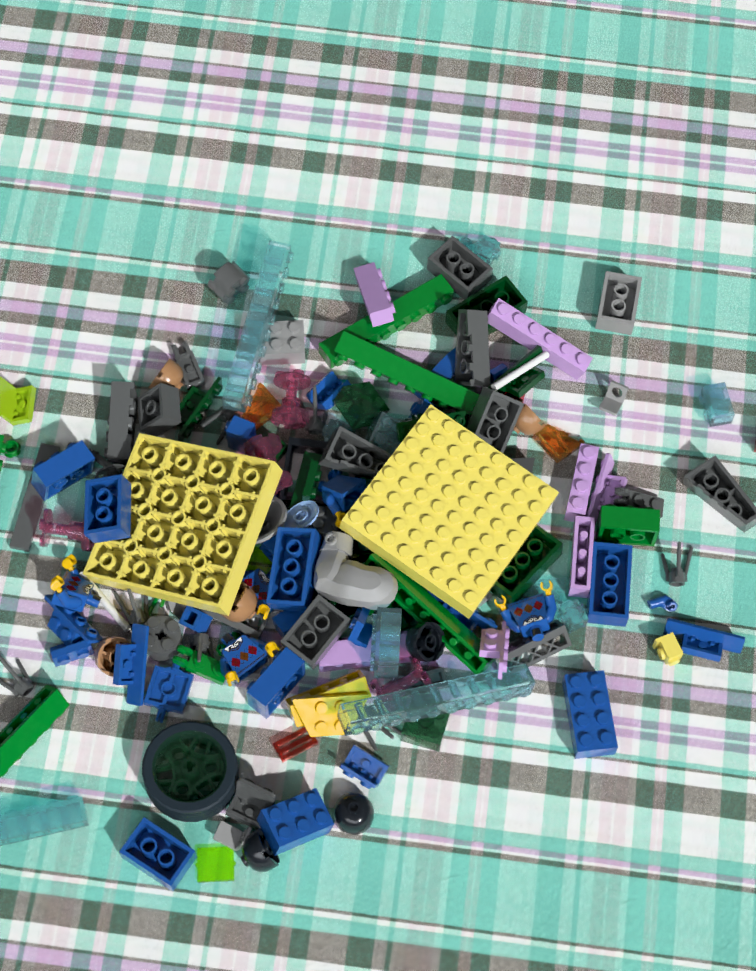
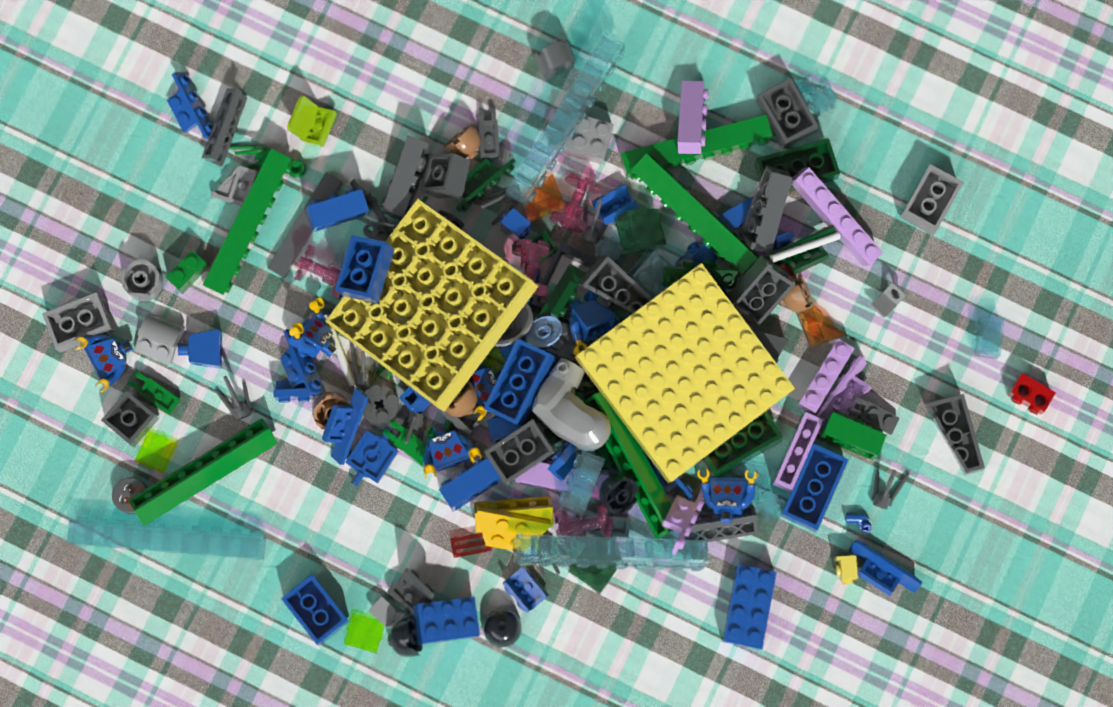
camera: 20 degrees right, 15 degrees up
(190, 771) = (351, 513): wheel -> none

